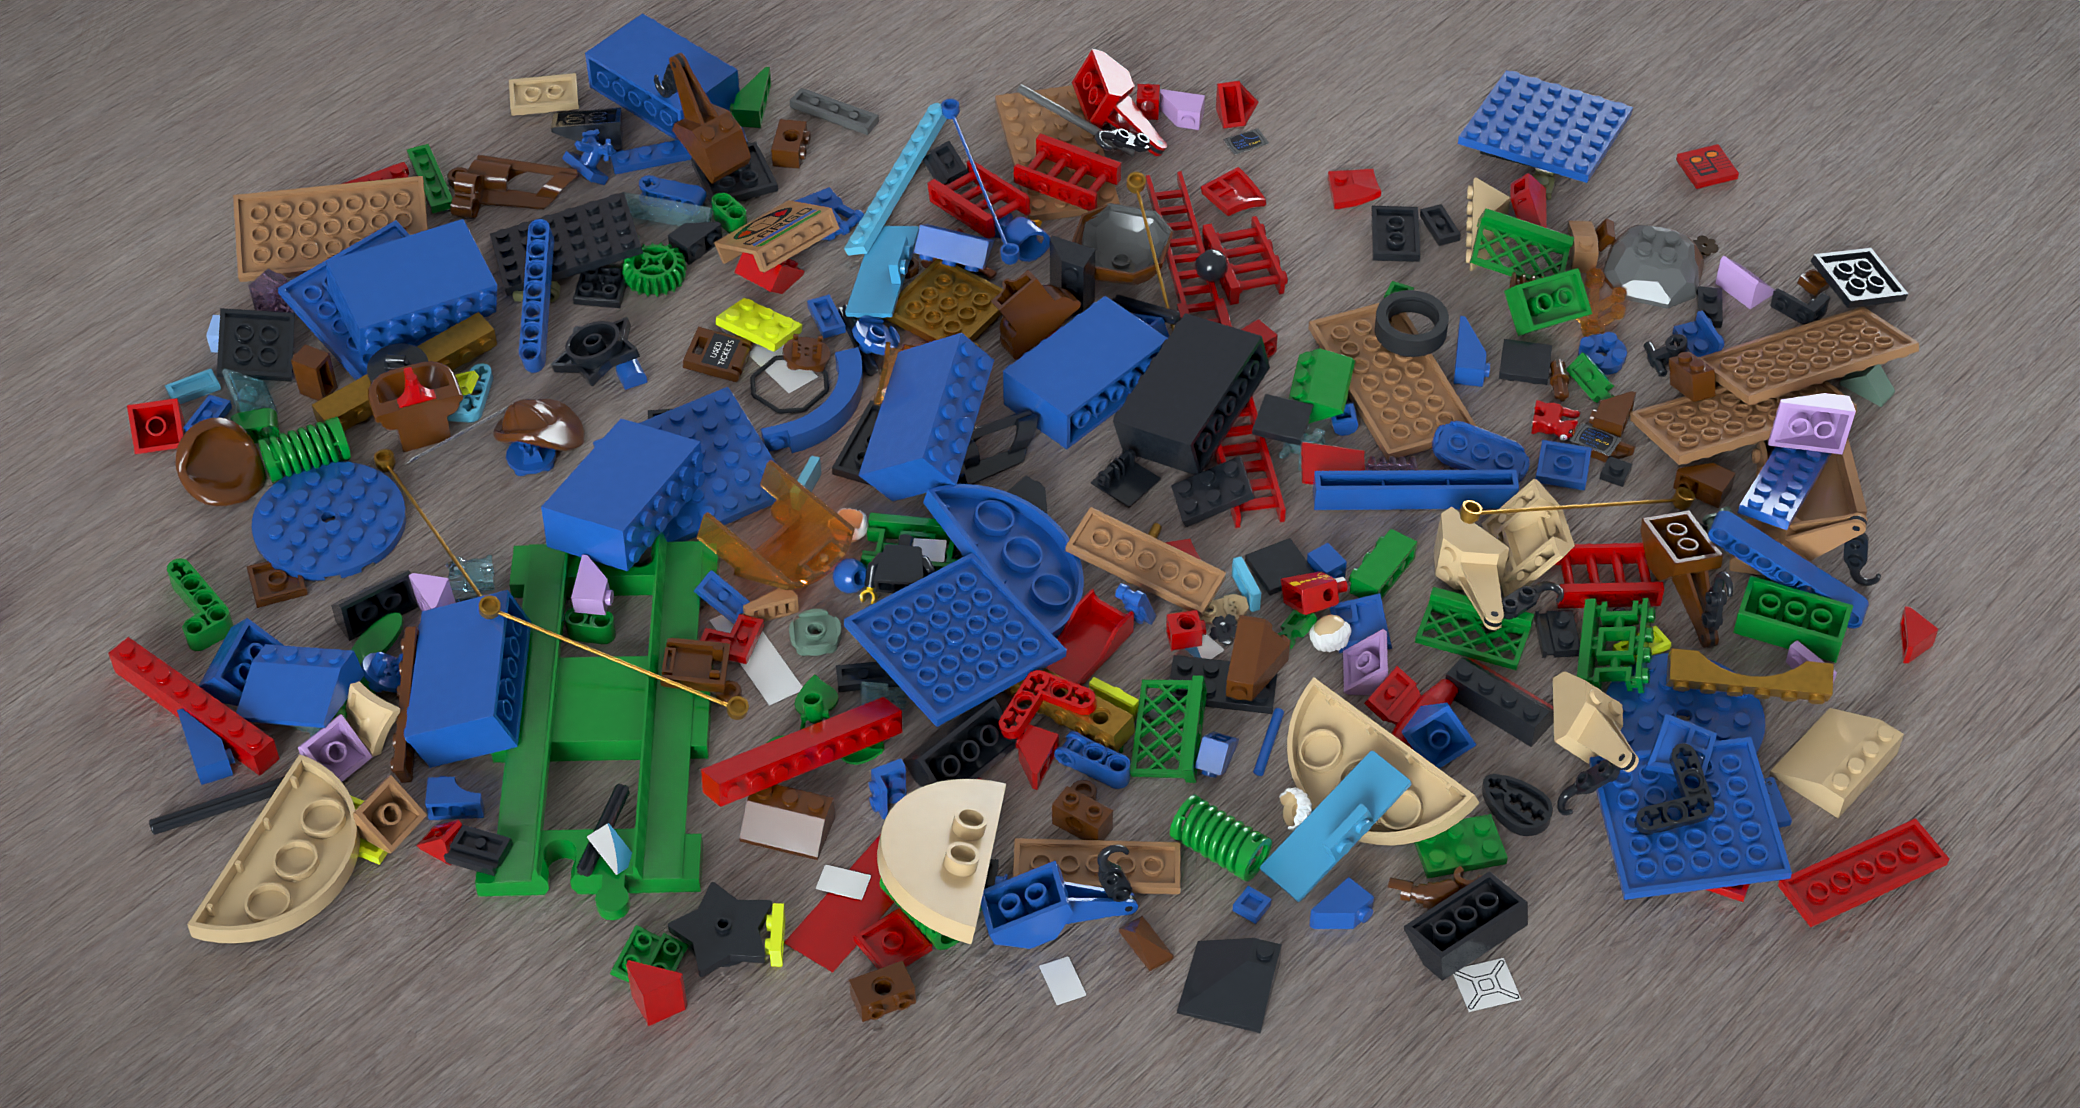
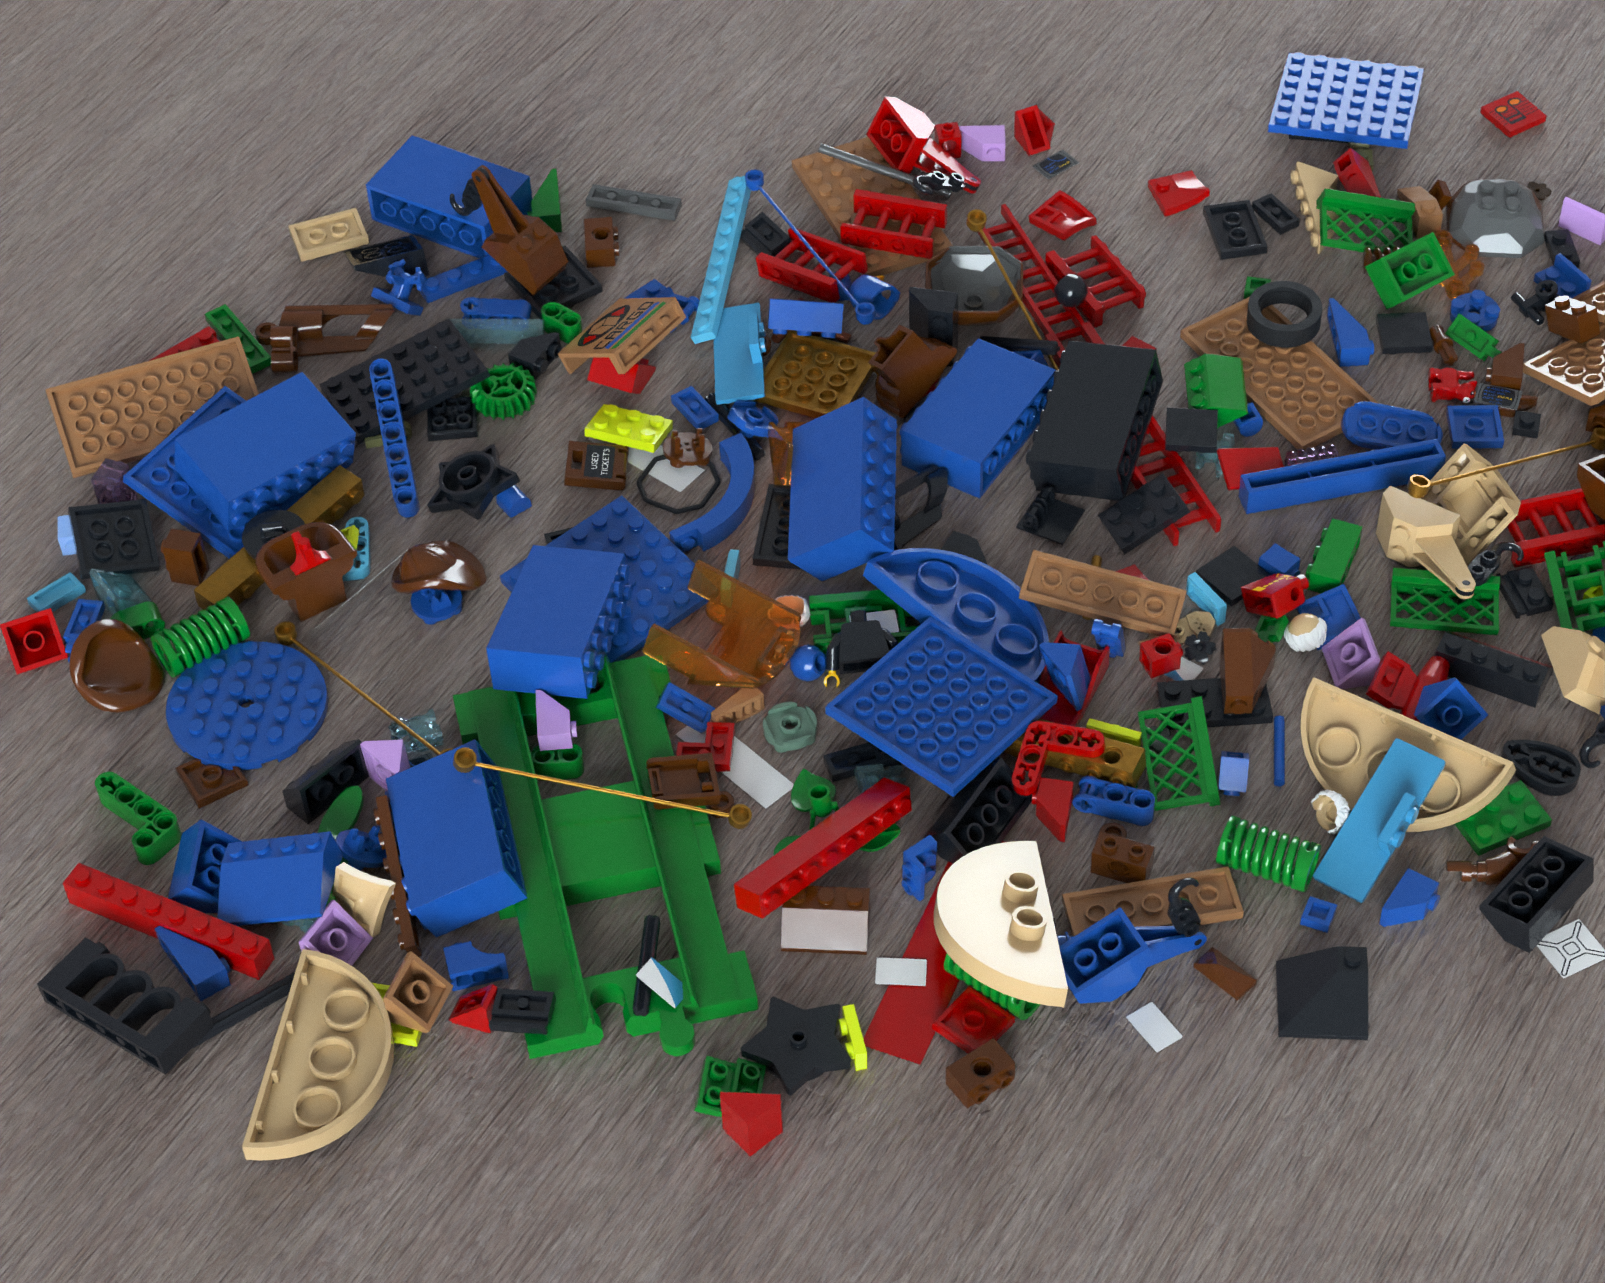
camera: 10 degrees left, 0 degrees up
(152, 816) = (164, 1044): none -> black fence
(1087, 628) = (1067, 671): none -> blue slope

